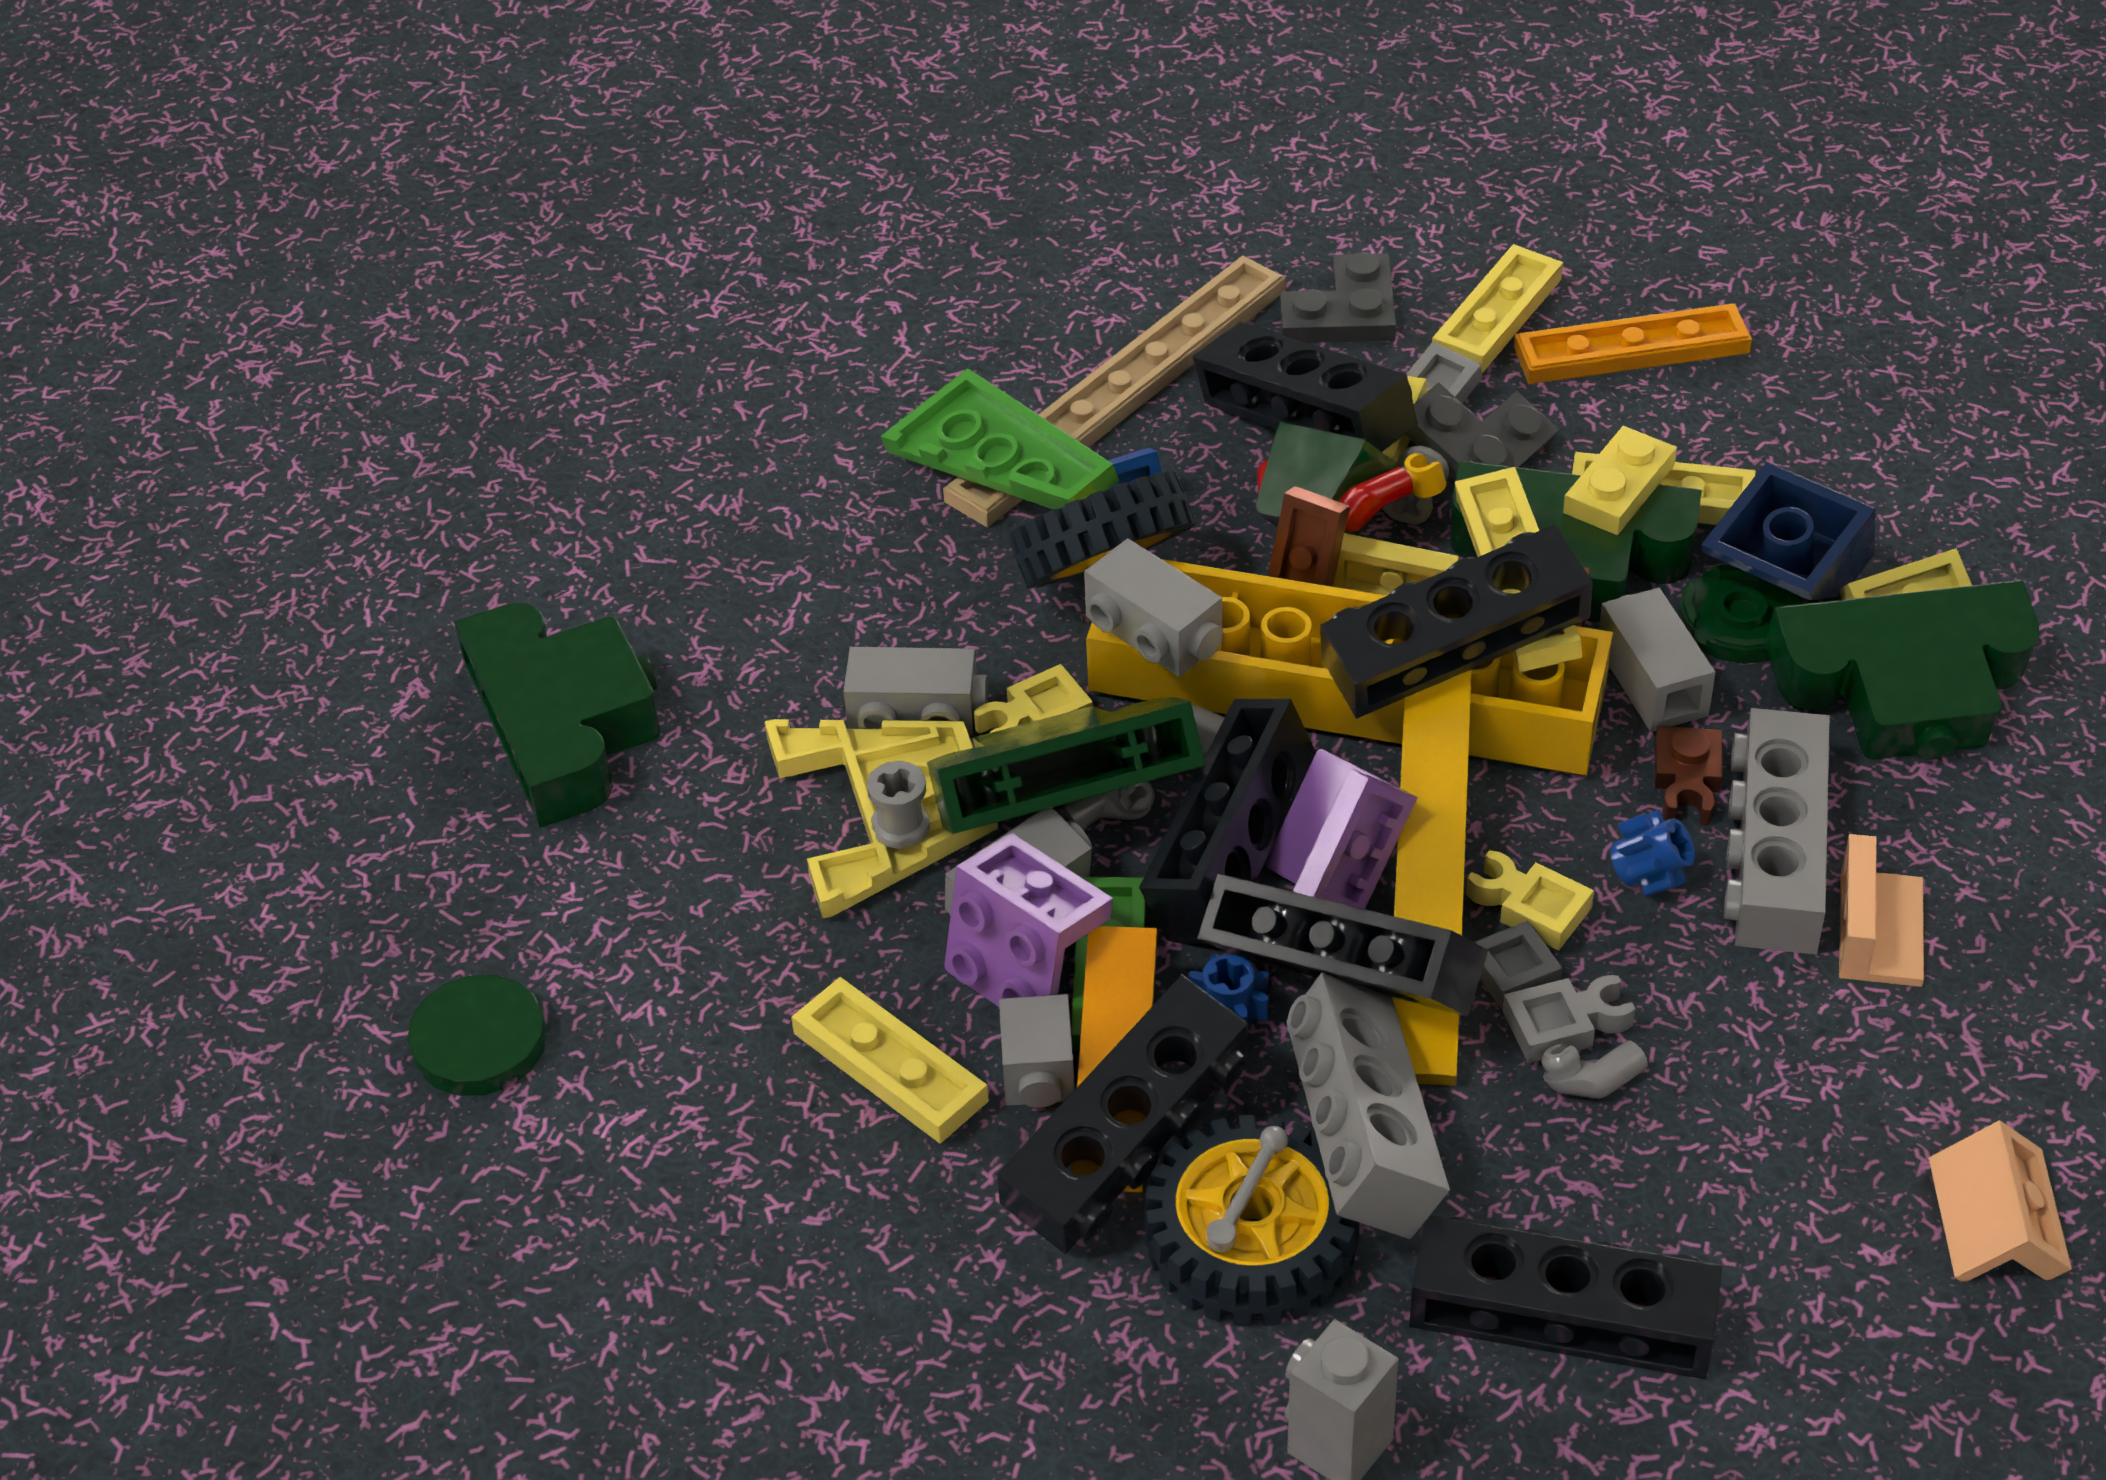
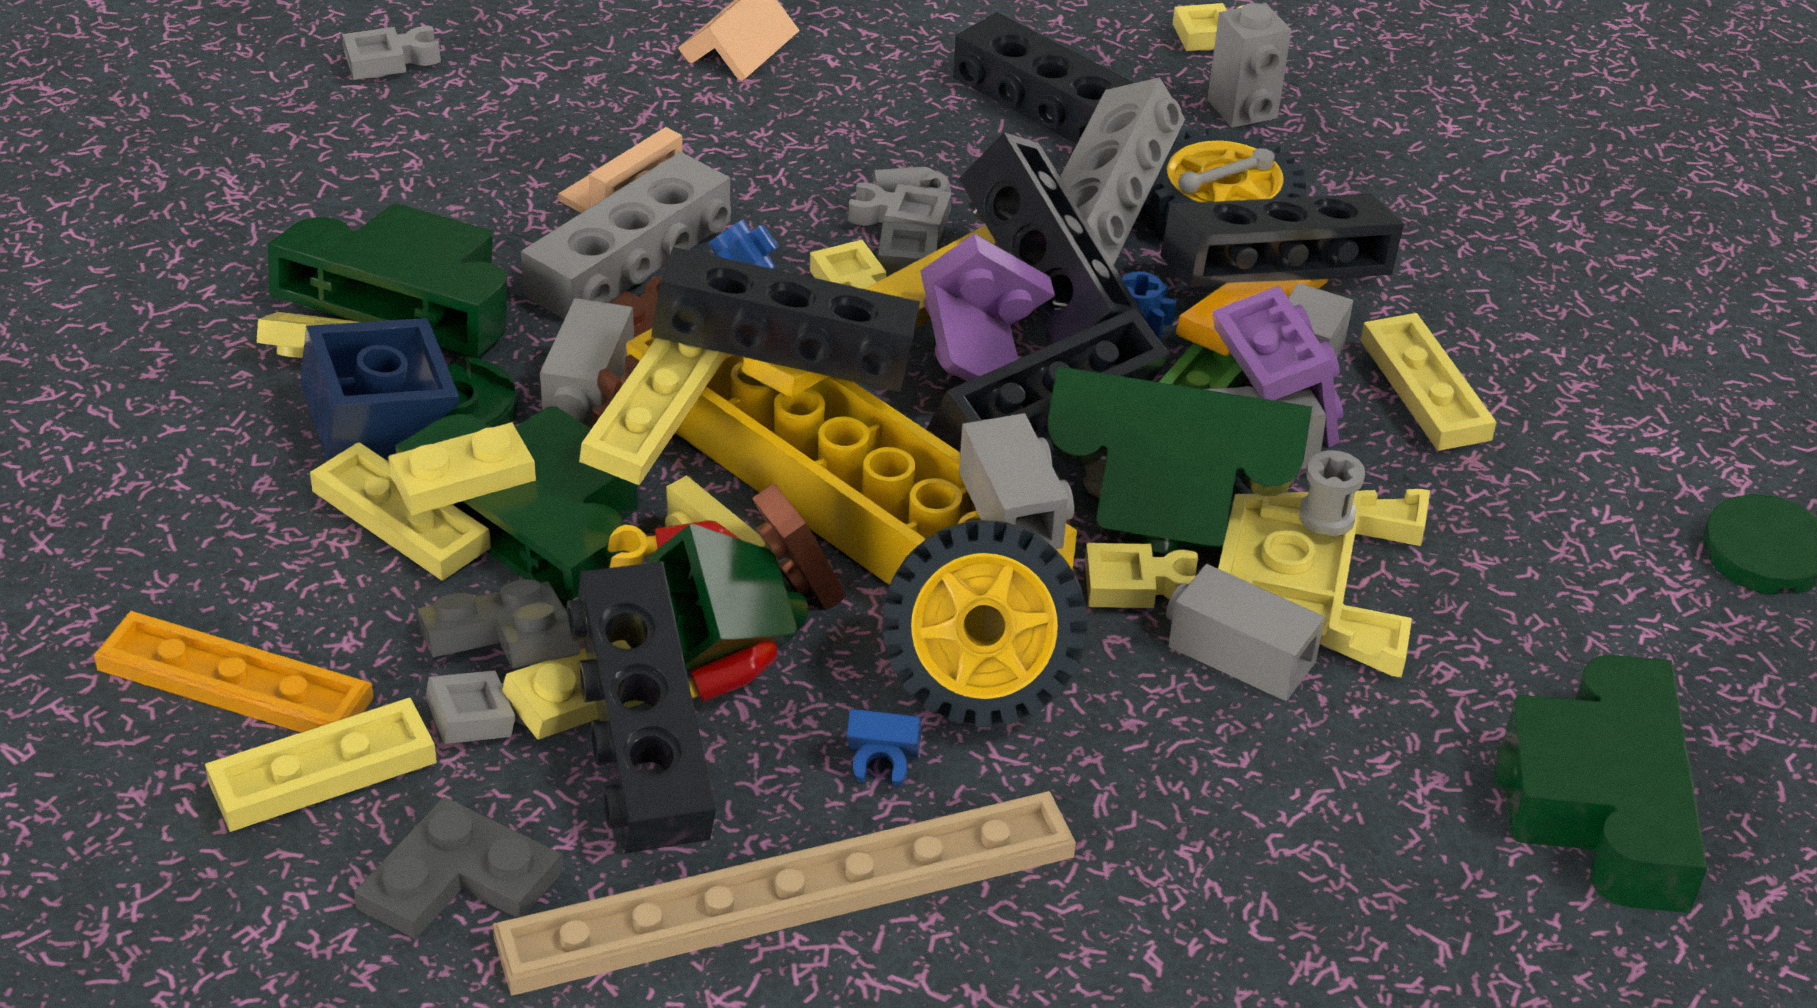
camera: 155 degrees left, 5 degrees down
(998, 443) = (997, 820): bright green wing -> none

